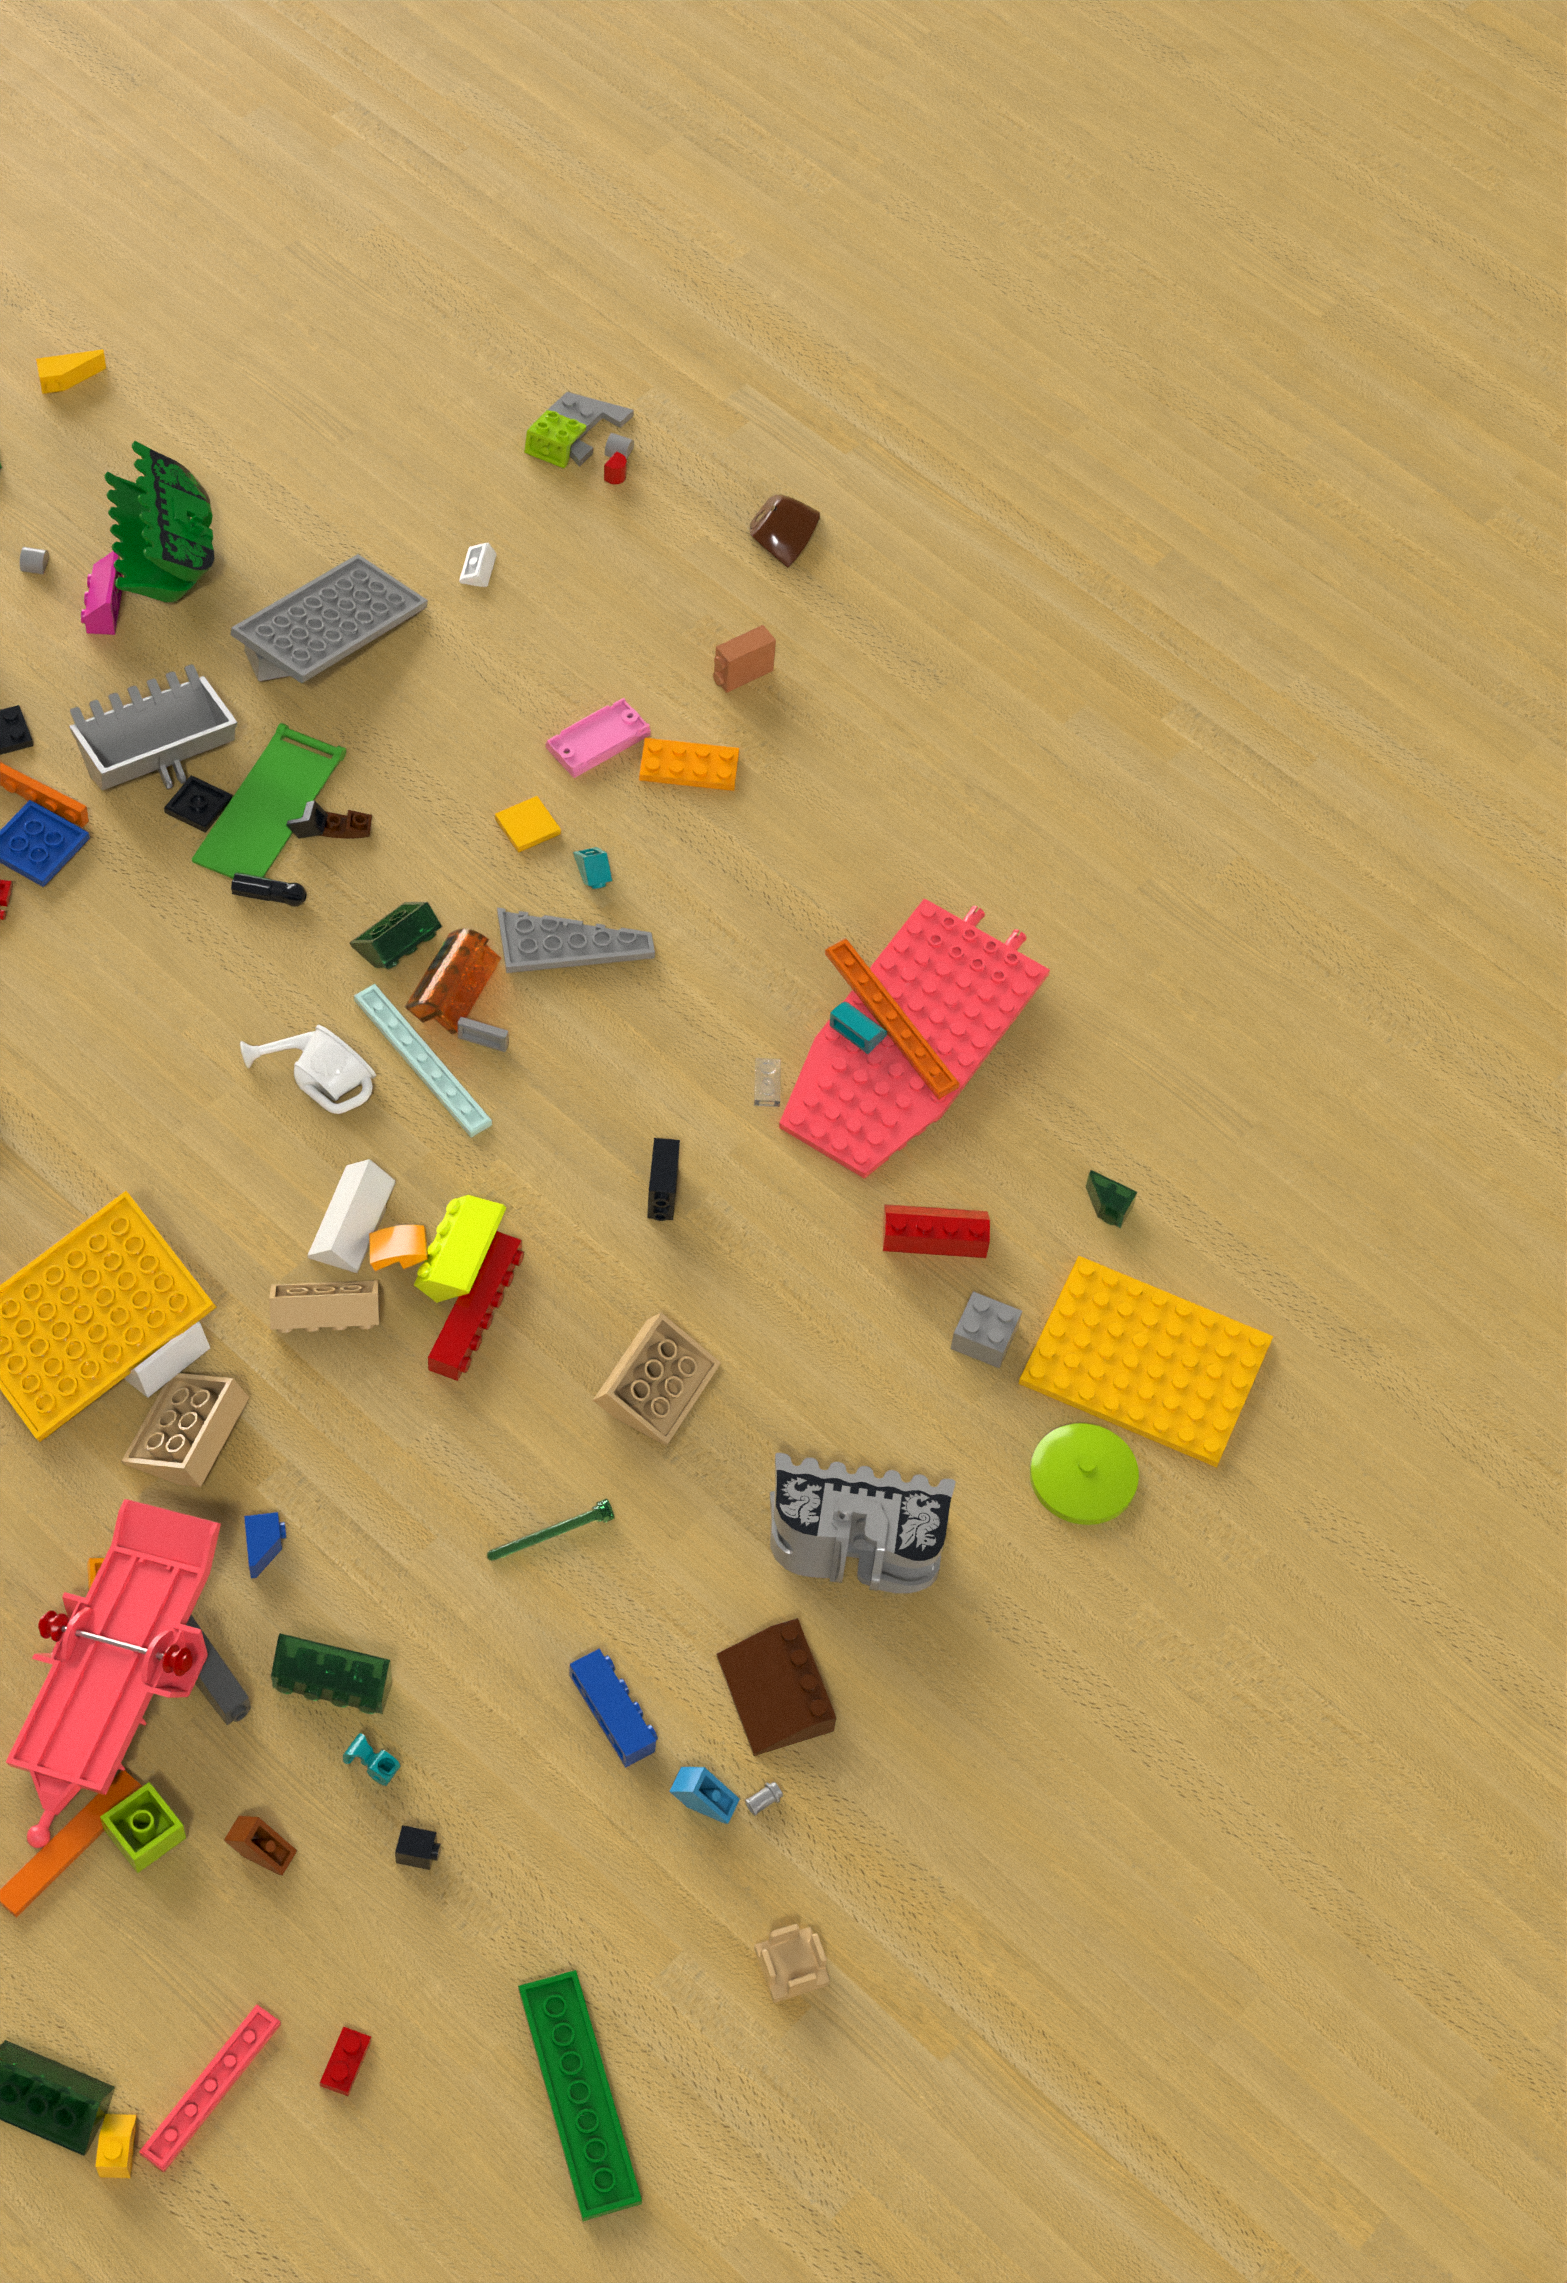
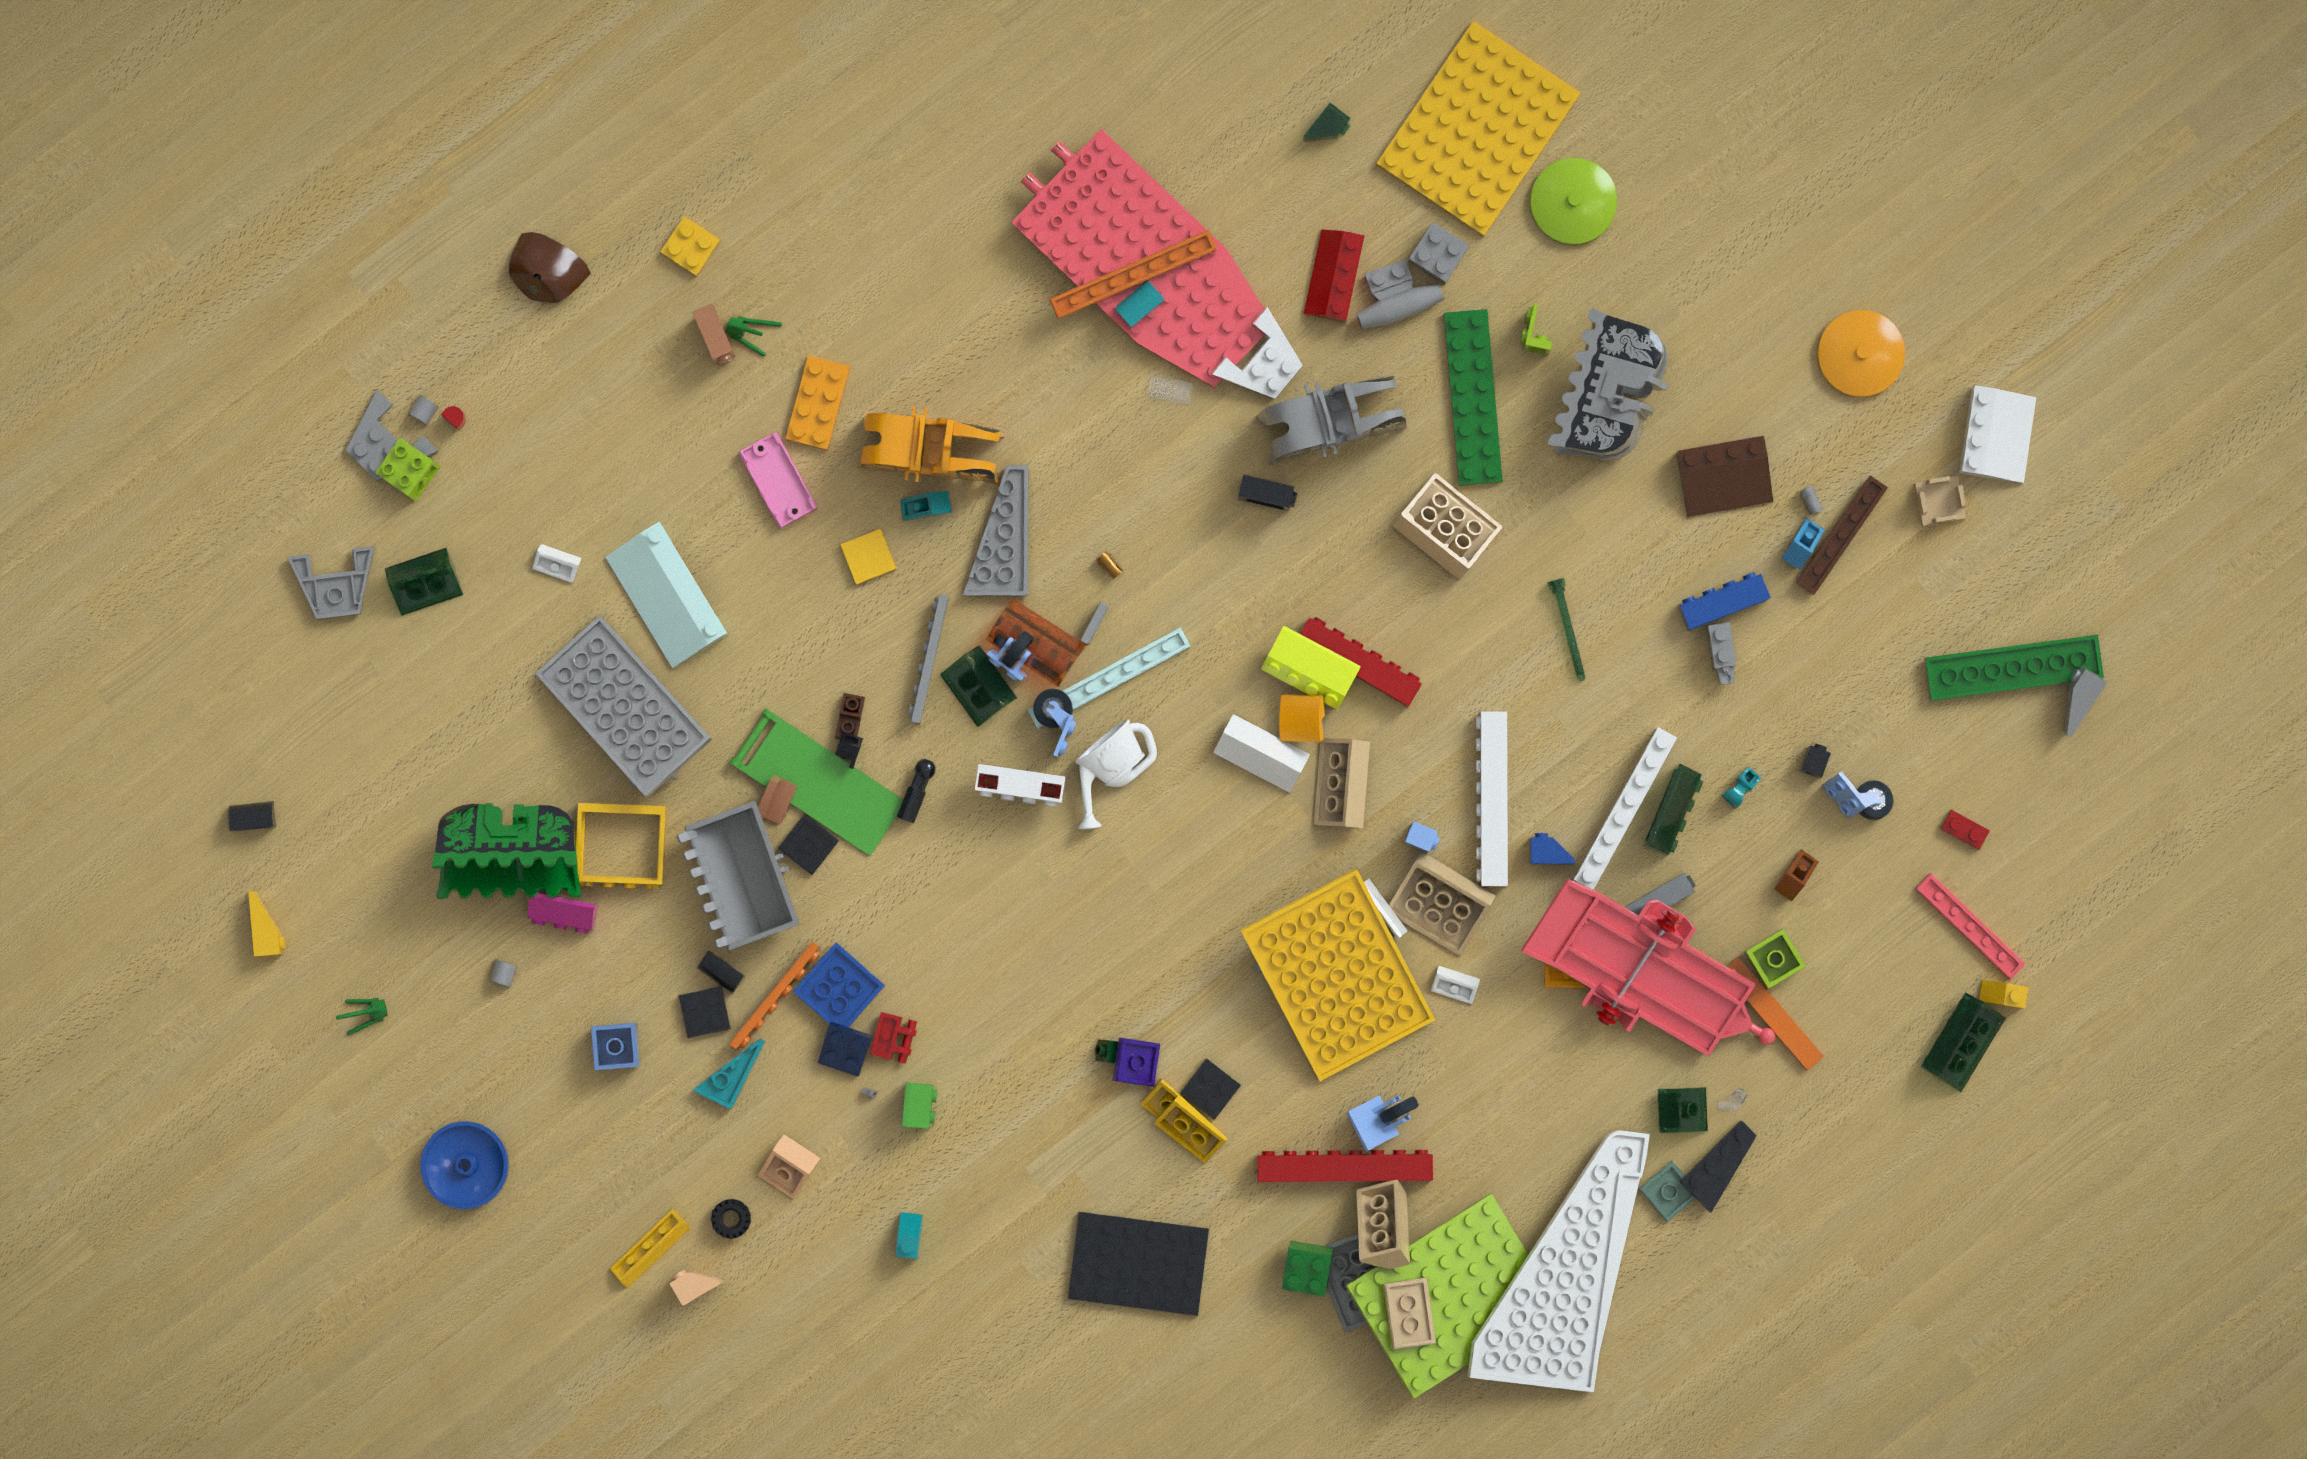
camera: 75 degrees left, 30 degrees up
(49, 738) = (721, 971): none -> black brick
(84, 1460) = (1455, 985): none -> white slope
(180, 608) = (609, 881): none -> yellow window
(181, 353) = (252, 816): none -> black brick
(244, 762) = (776, 799): none -> nougat panel
(265, 1389) = (1422, 837): none -> light blue brick
(284, 970) = (1019, 784): none -> white piece
(322, 1470) = (1493, 800): none -> white brick
(326, 1620) = (1625, 808): none -> white brick
(372, 1924) = (1870, 800): none -> light blue plate
(374, 1000) = (1054, 710): none -> plate
(420, 398) = (334, 593): none -> light grey wing
(420, 886) = (930, 649): none -> light grey plate
(431, 942) = (1017, 650): none -> plate
(441, 459) = (423, 581): none -> clear green slope
(456, 652) = (666, 595): none -> light aqua slope
(548, 1711) = (1722, 651): none -> light grey hinge
(552, 2184) = (2082, 693): none -> light grey slope
(554, 1044) = (1109, 564): none -> pearl gold pin
(657, 841) = (903, 444): none -> light orange animal
(724, 1842) = (1841, 535): none -> reddish brown plate
(755, 687) = (738, 327): none -> green plant
(759, 1176) = (1324, 421): none -> light grey animal
(815, 1174) = (1270, 366): none -> white wing
(820, 1393) = (1473, 397): none -> green plate
(834, 642) = (690, 246): none -> yellow plate
(895, 2024) = (1997, 434): none -> white slope
(915, 1434) = (1538, 344): none -> lime bracket
(925, 1293) = (1395, 296): none -> light grey plate
(968, 1837) = (1861, 353): none -> light orange dish

